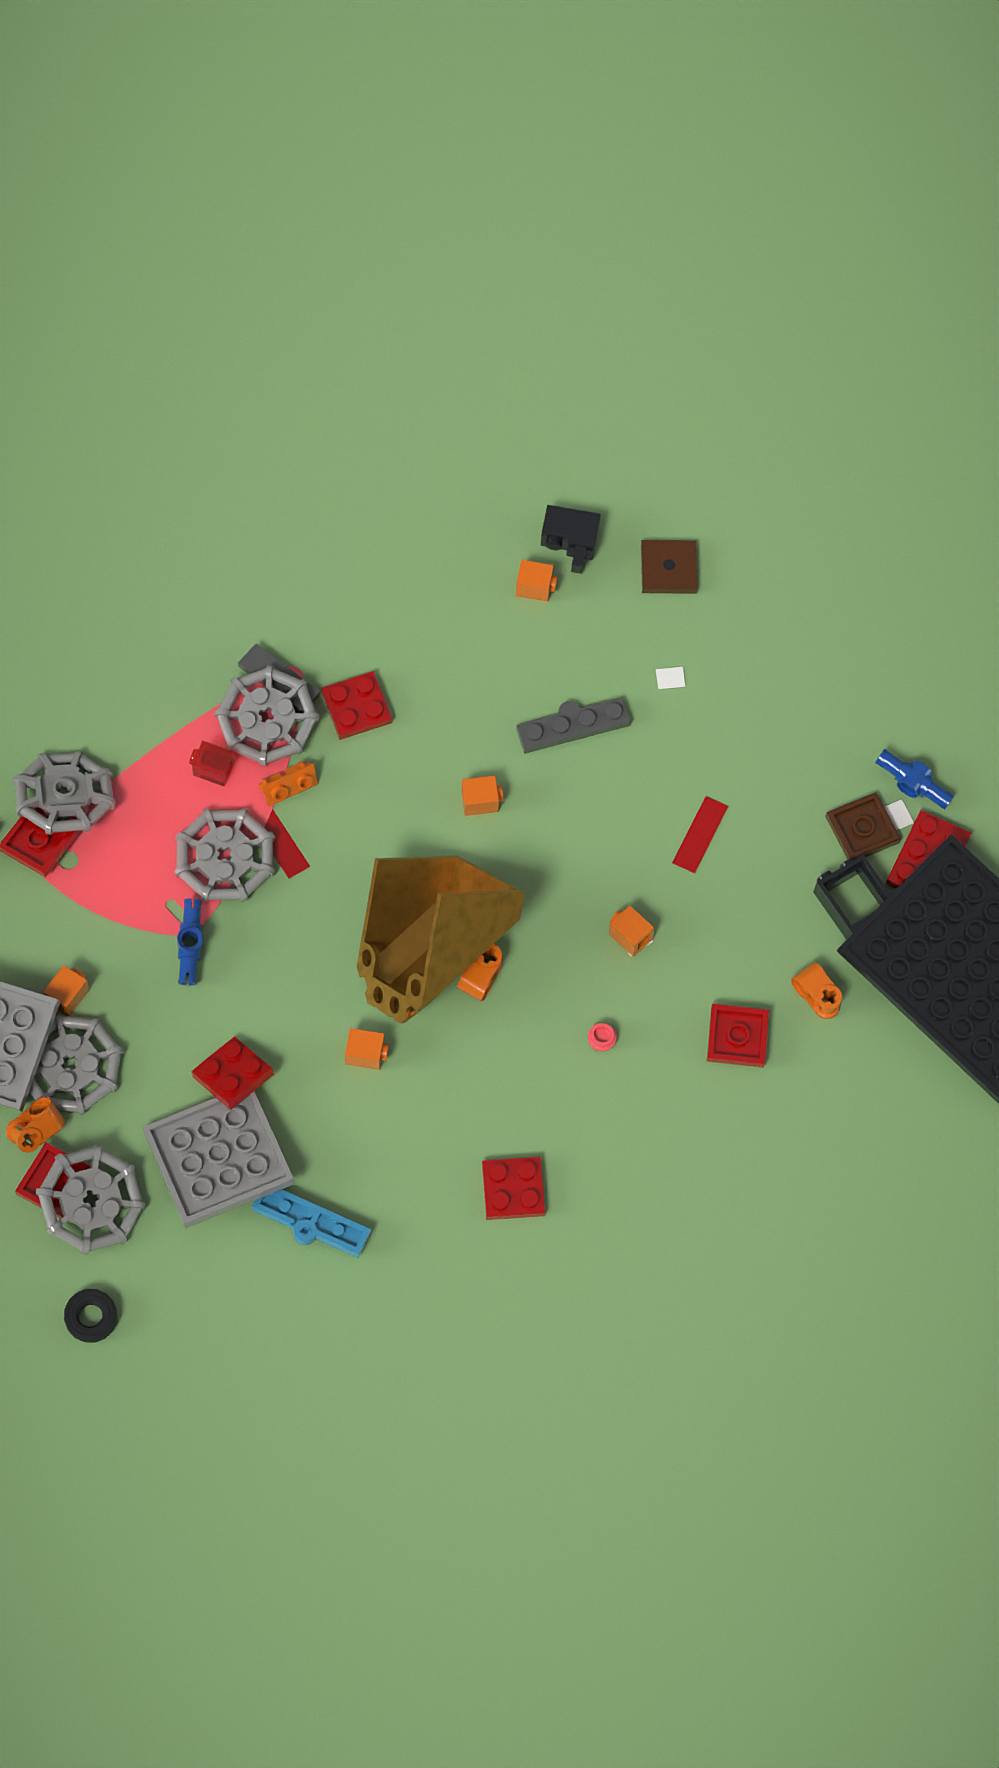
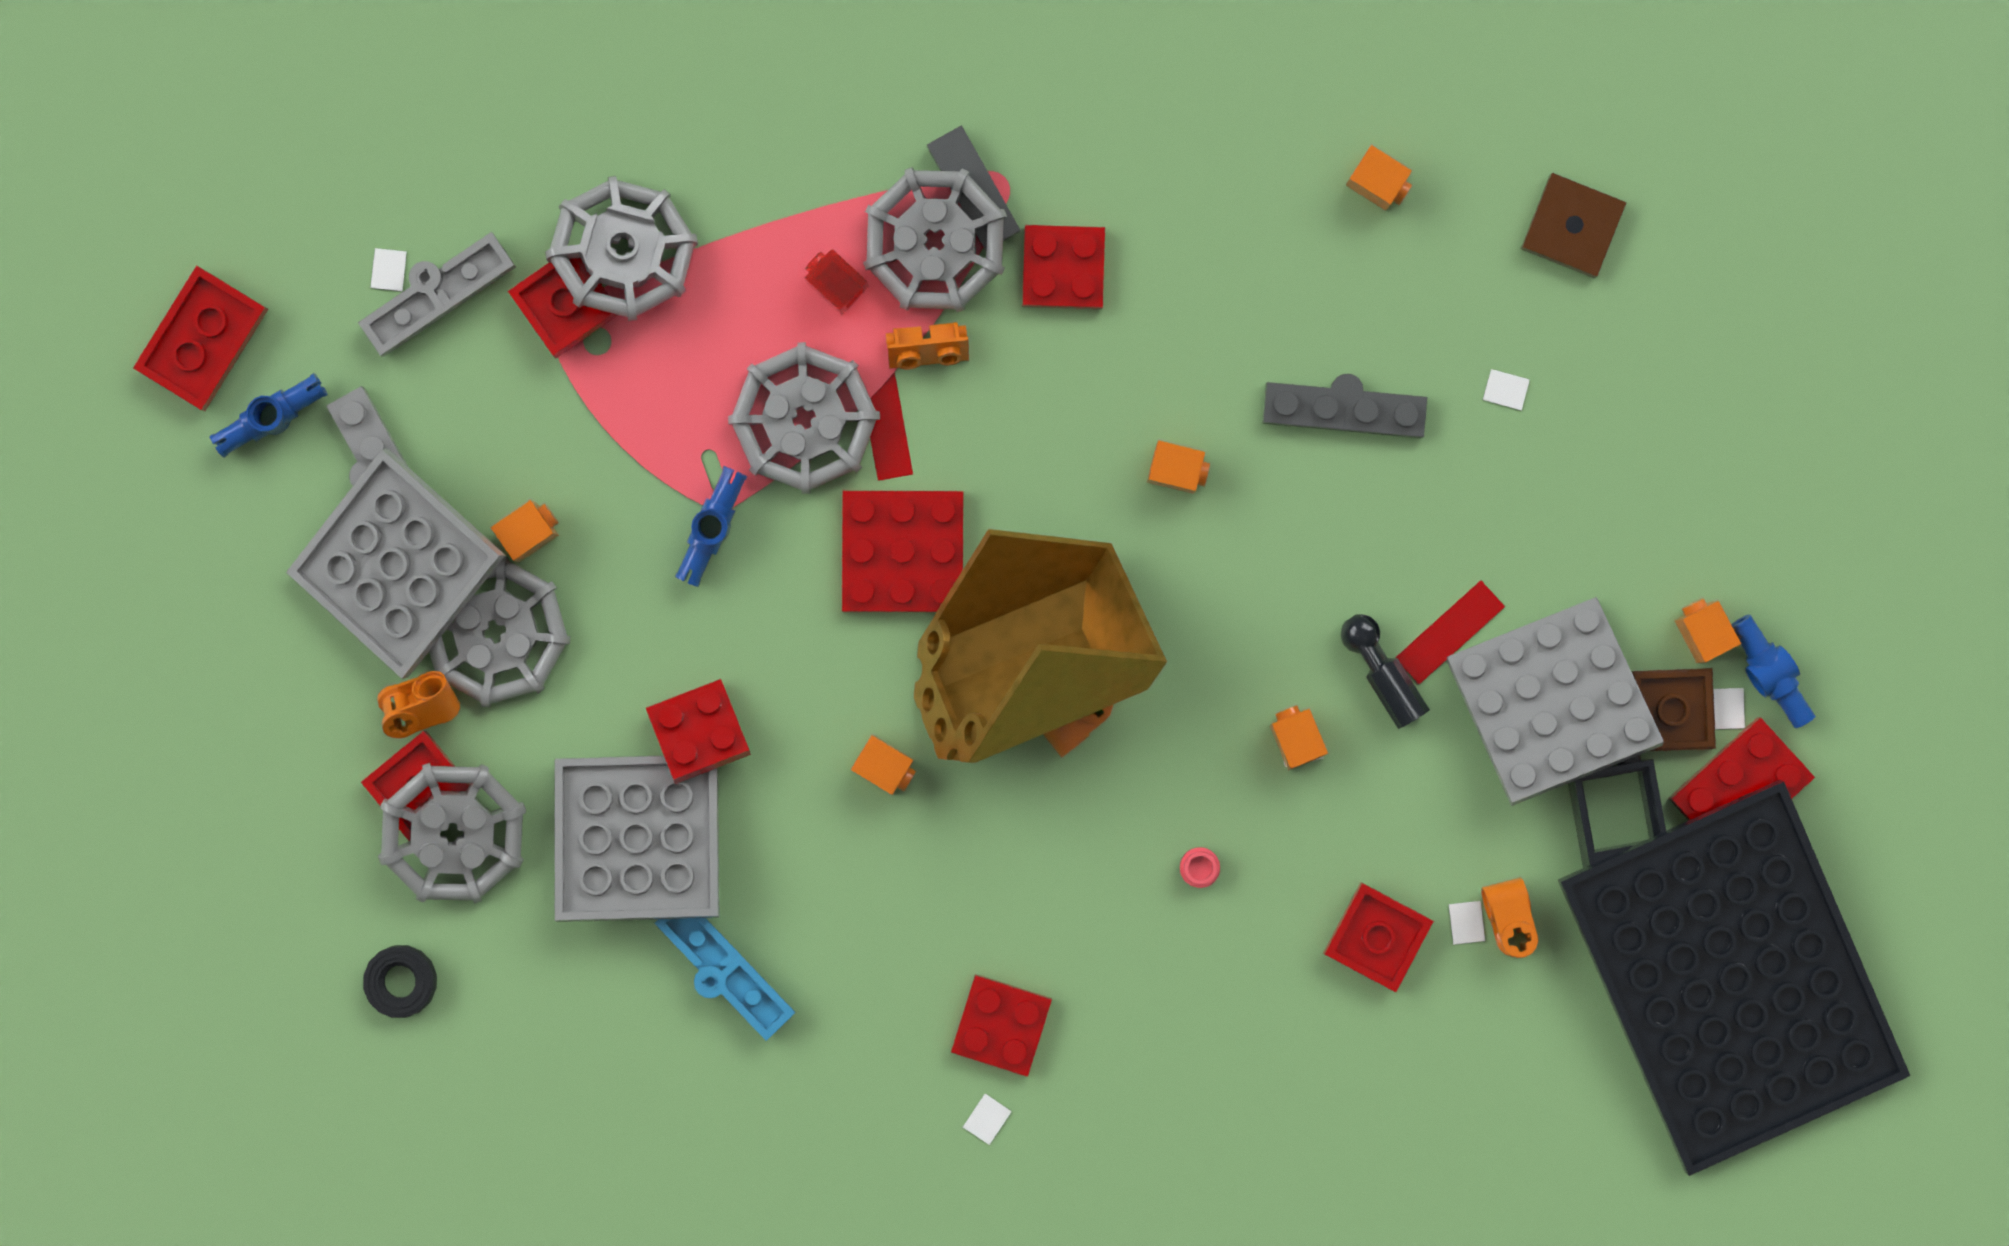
camera: 25 degrees right, 20 degrees up
(320, 913) = (900, 549): none -> red plate
(529, 1255) = (987, 1119): none -> white sticker
(571, 531) = (1461, 123): black hinge -> none
(670, 872) = (1386, 674): none -> black piece
(784, 845) = (1554, 701): none -> light grey plate
(791, 1008) = (1466, 922): none -> white sticker
(861, 769) = (1706, 630): none -> orange brick

